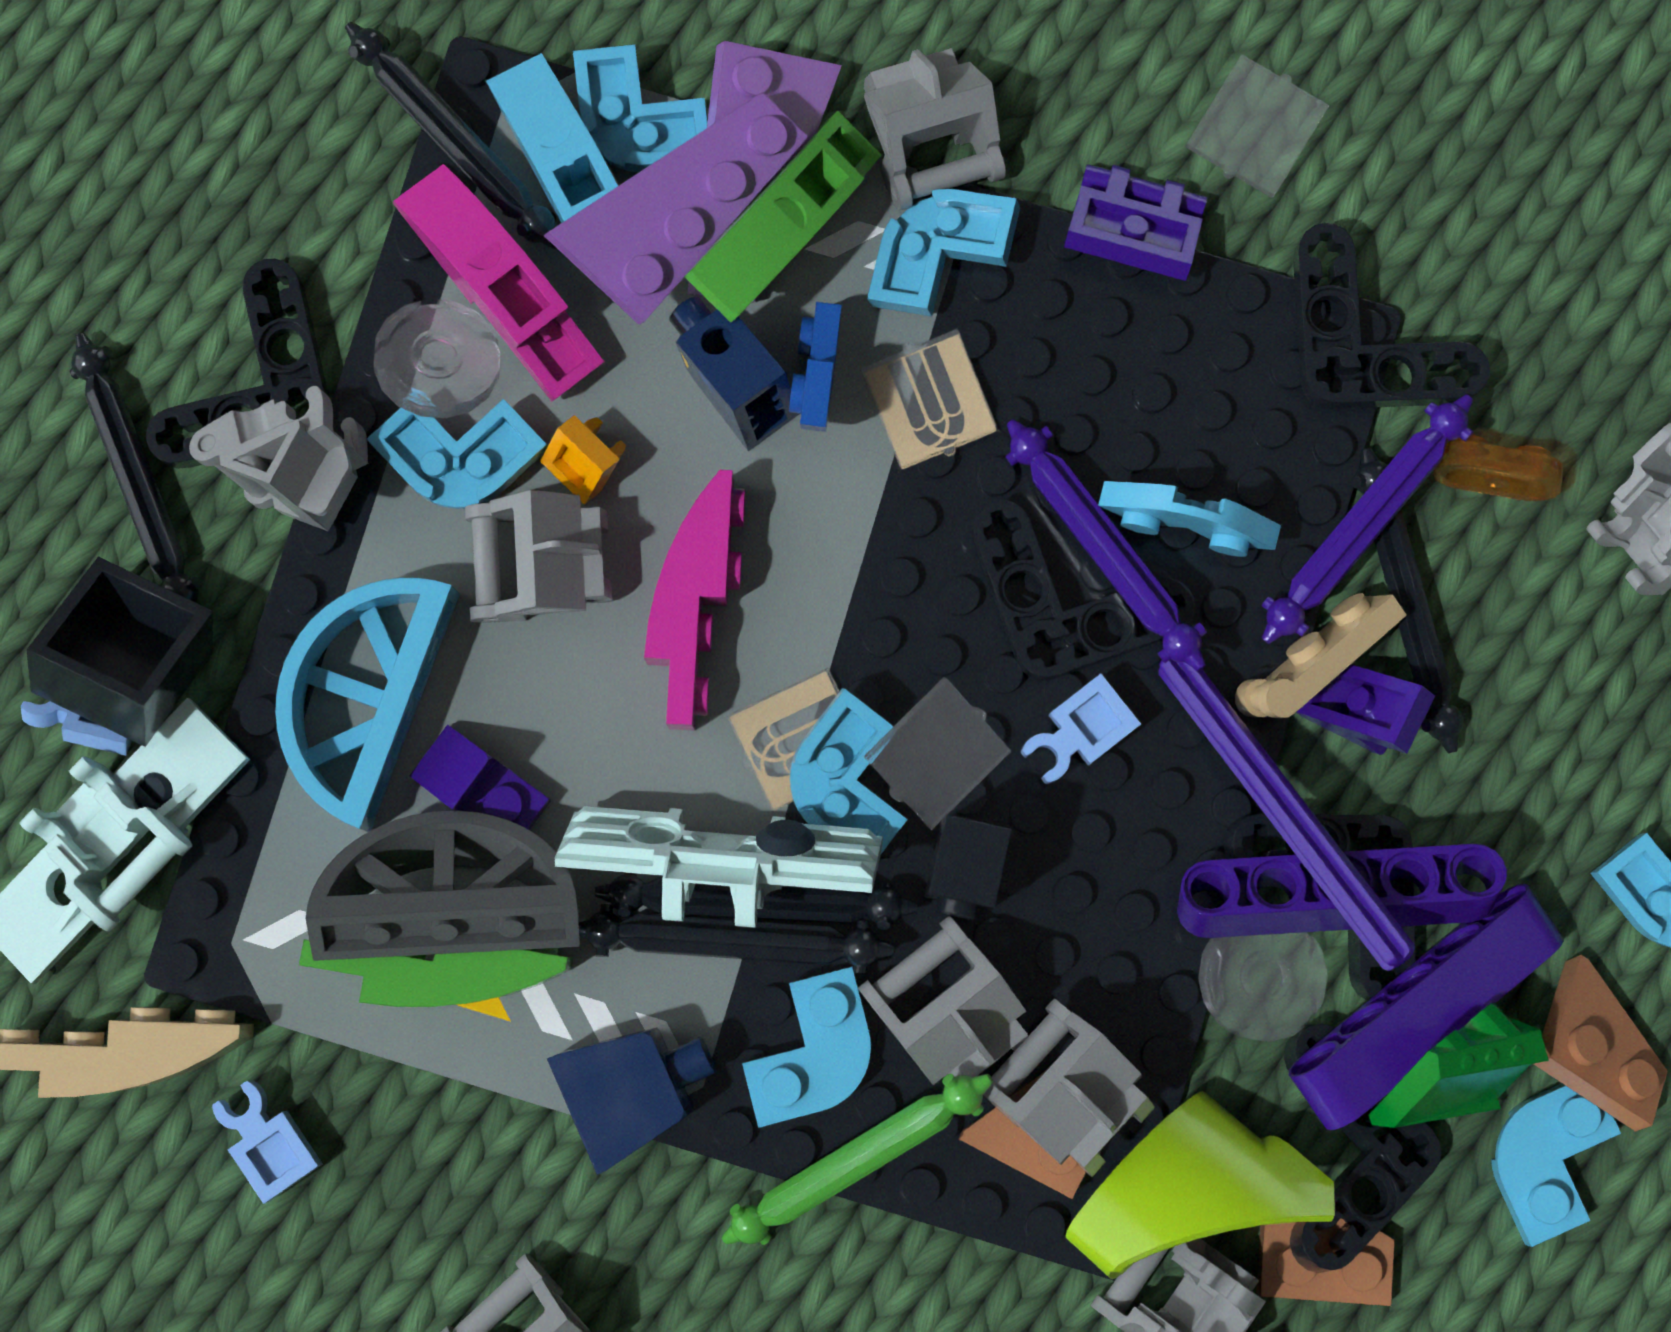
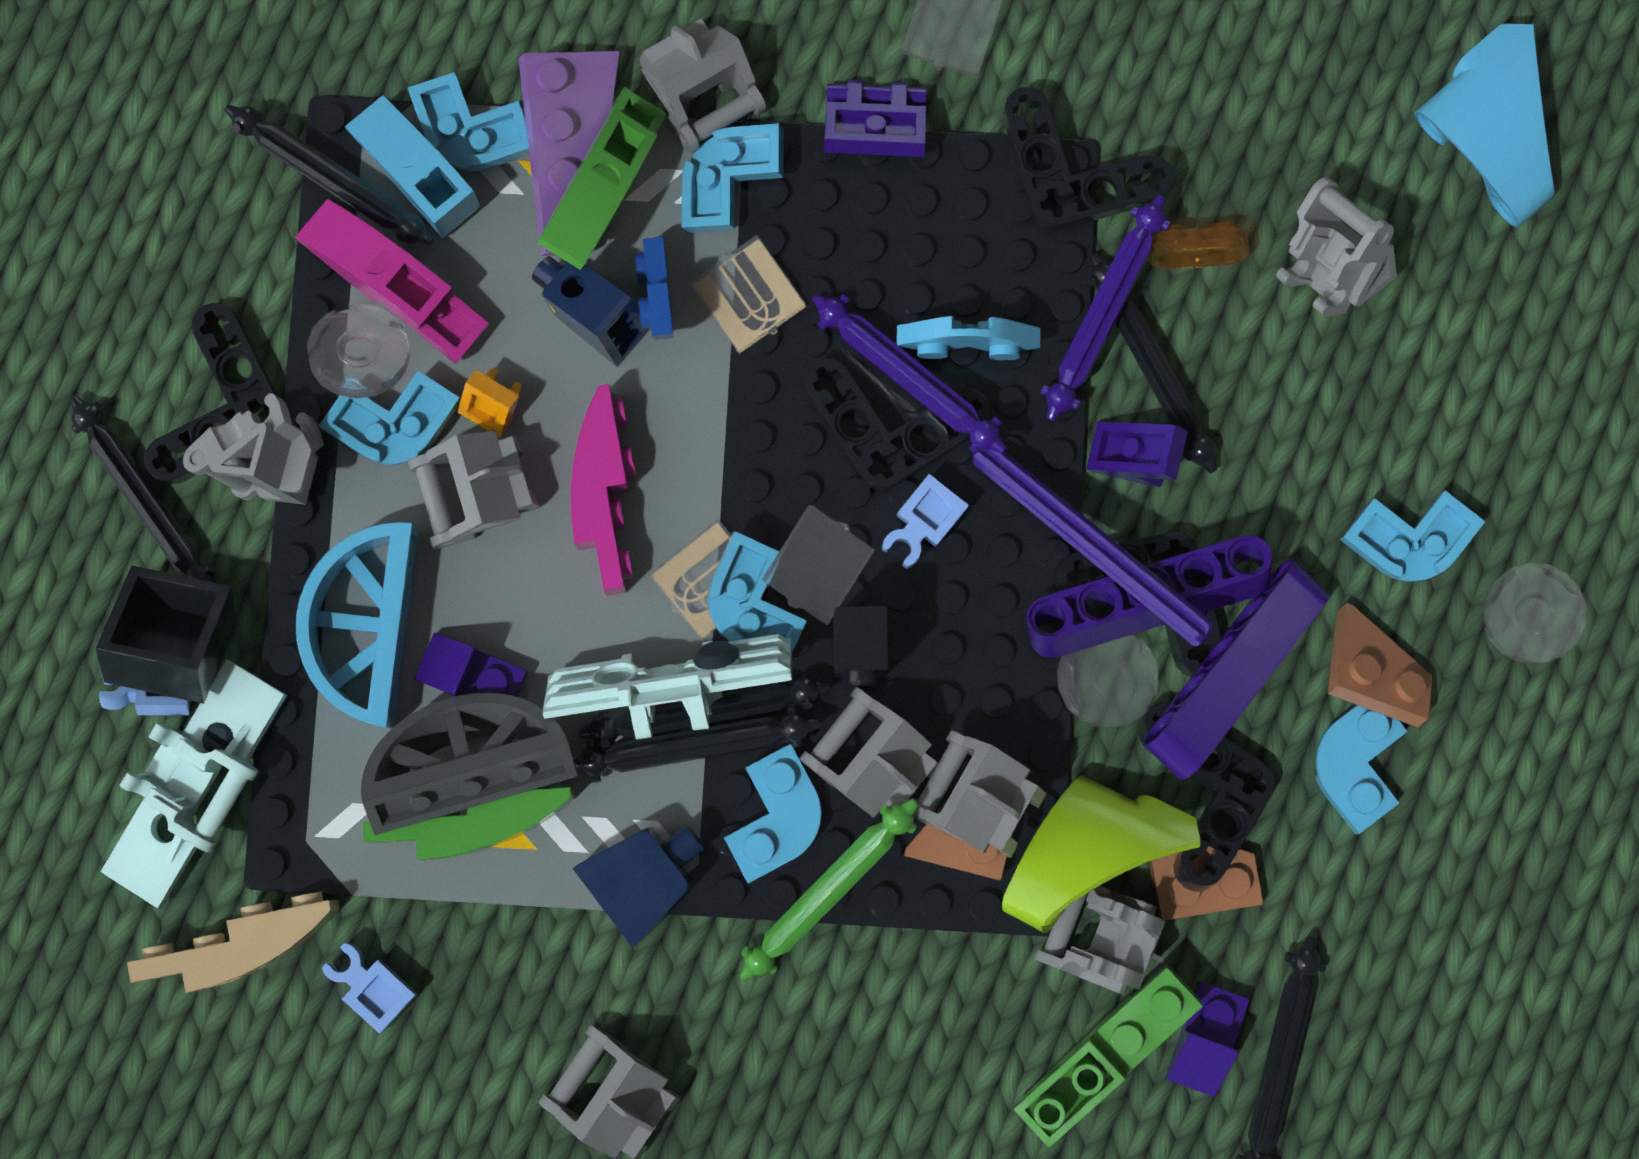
camera: 15 degrees left, 0 degrees up
(669, 215) = (514, 196): medium lavender wing -> none
(1320, 656) = (1094, 421): tan plate -> none
(1463, 1071) = (1274, 711): green slope -> none

